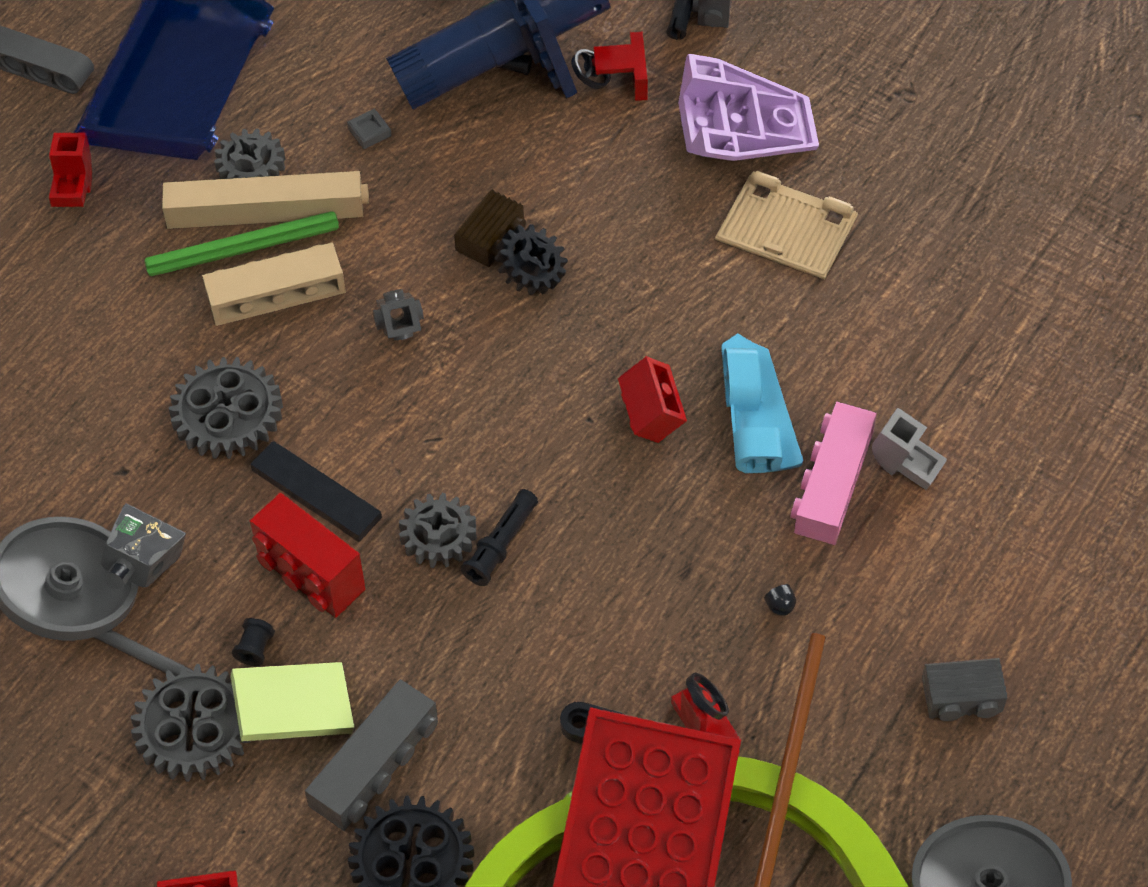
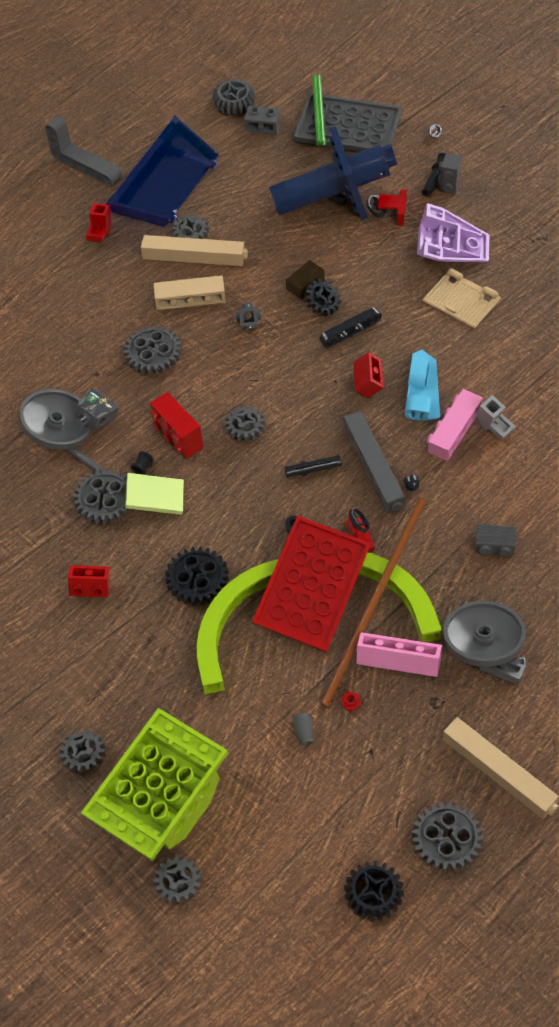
camera: 15 degrees right, 0 degrees up
(241, 243) = (178, 271): bright green axle -> none
(316, 491) = (189, 396): black tile -> none
(369, 128) = (255, 222): dark grey tile -> none
(372, 755) = (188, 525): dark grey brick -> none
(492, 549) = (271, 436): black pin -> none
(548, 612) = (302, 468): none -> black pin
(595, 310) = (350, 327): none -> black beam
(701, 570) = (374, 462): none -> dark grey brick

